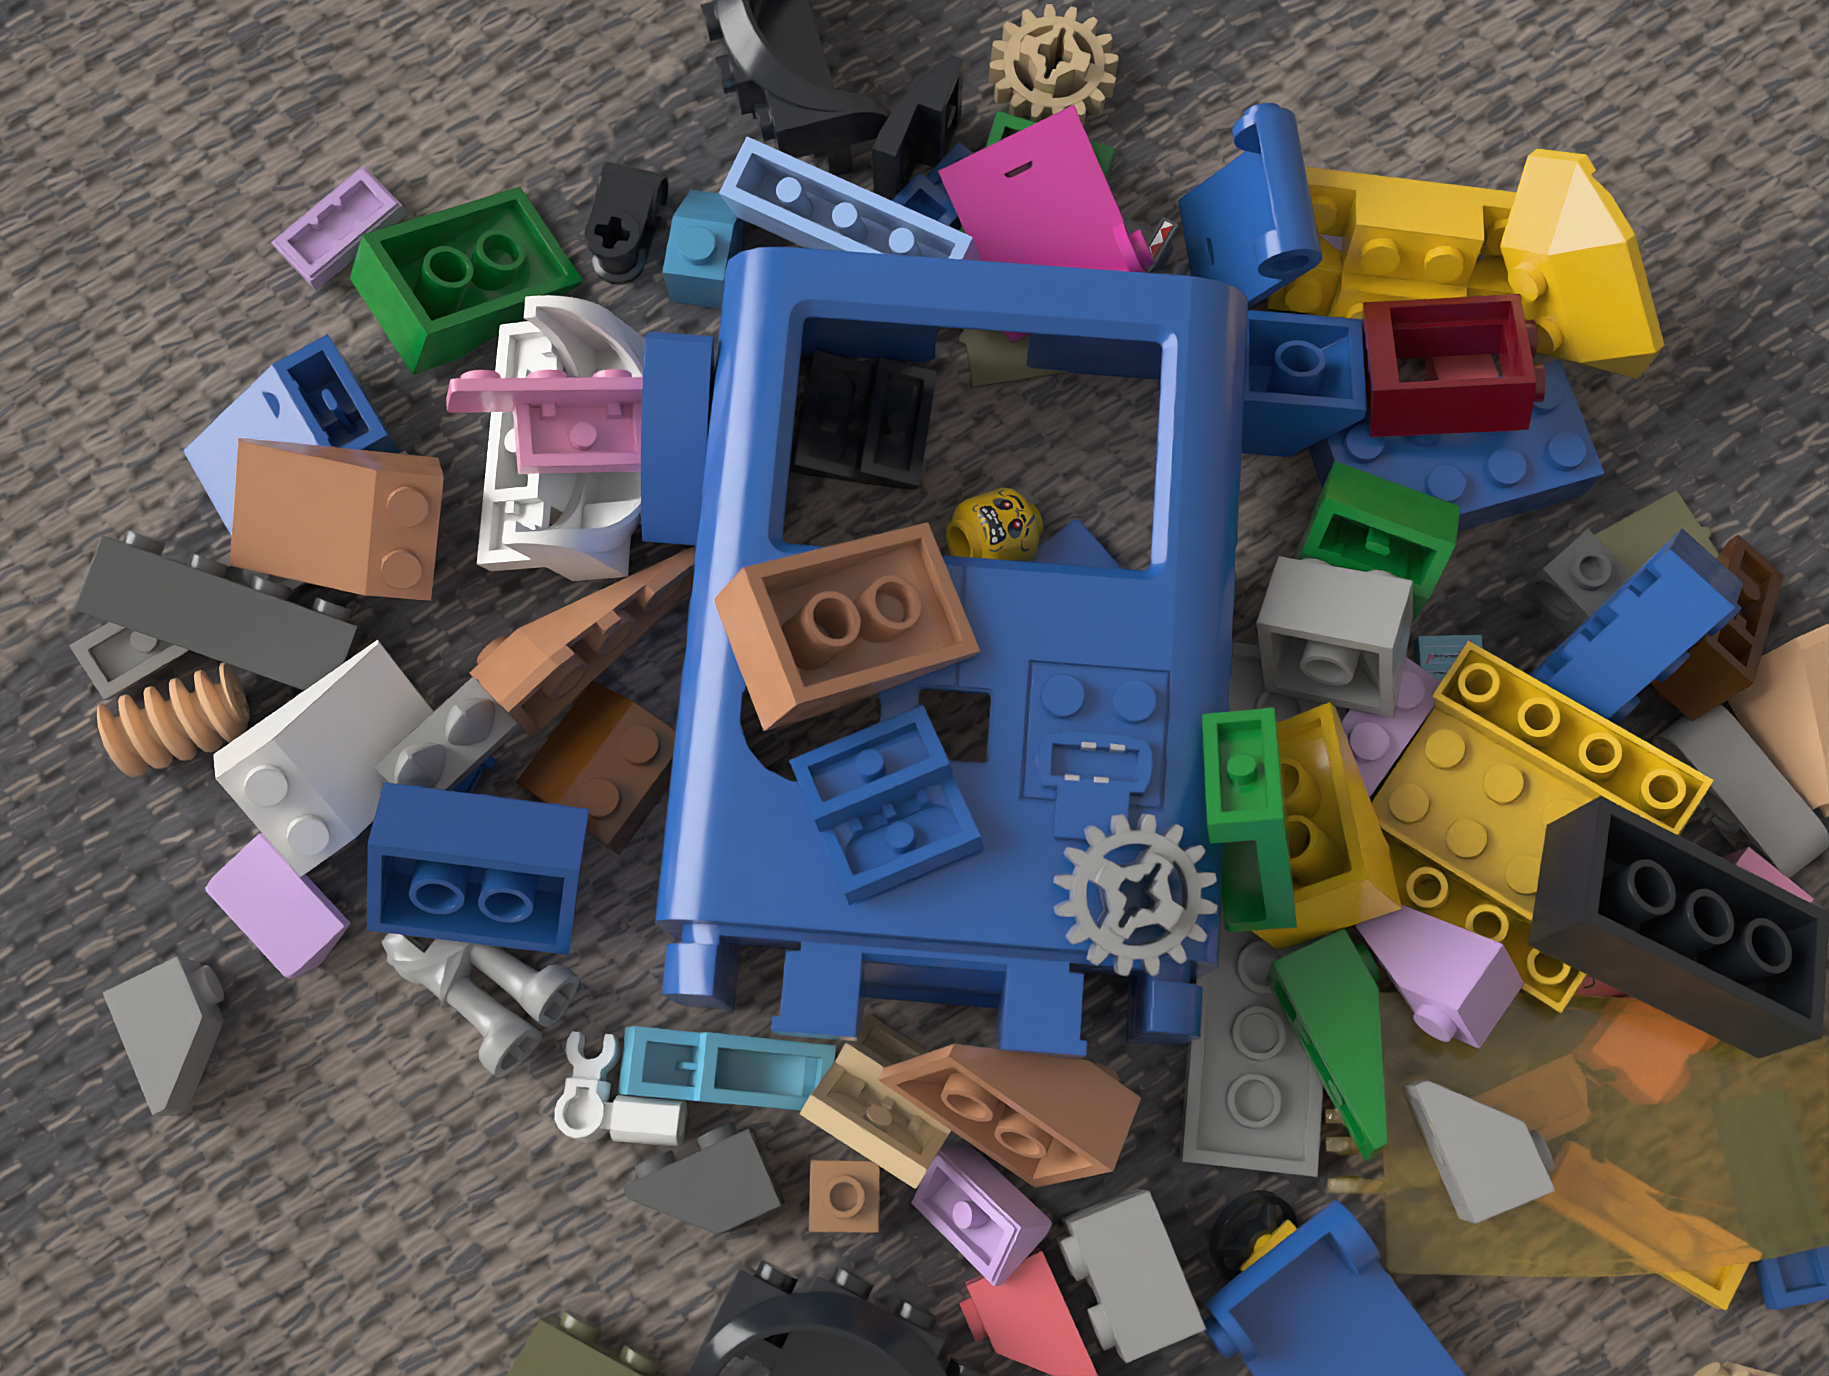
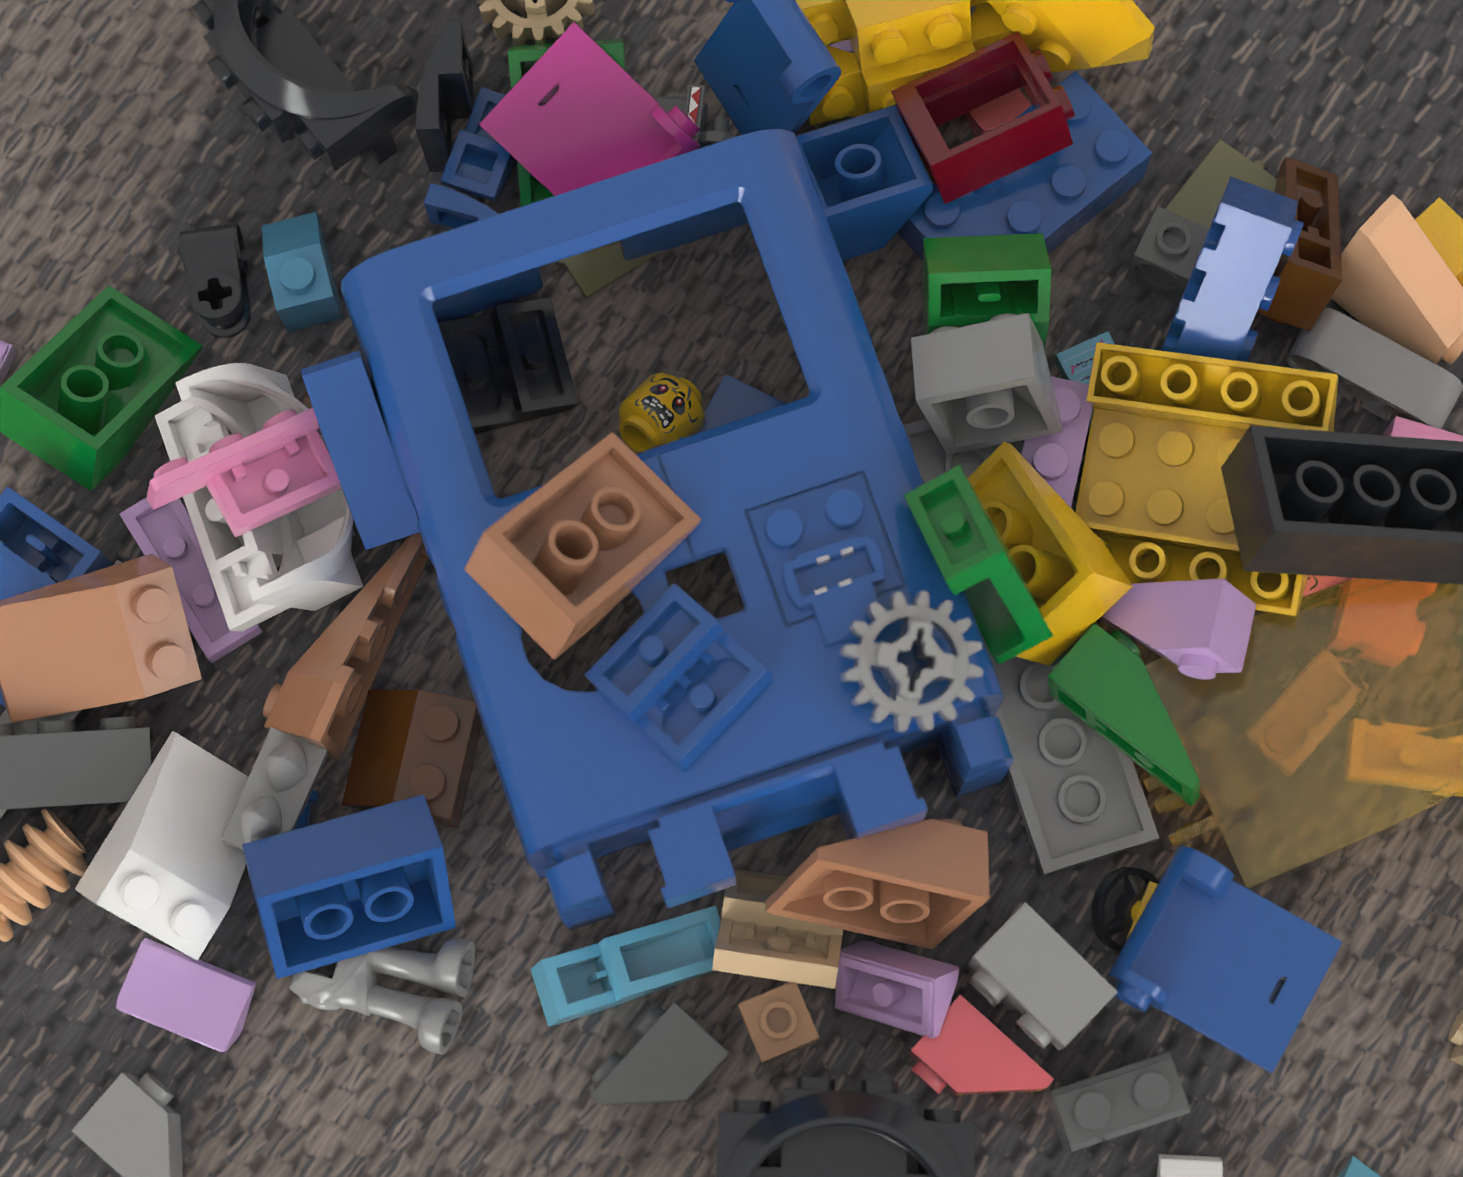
camera: 20 degrees left, 0 degrees up
(462, 450) = (171, 537): none -> lavender plate
(588, 1115) = (531, 1053): white bar -> none
(829, 211) = (409, 200): light blue brick -> none
(1480, 1152) = (1275, 753): light grey slope -> none

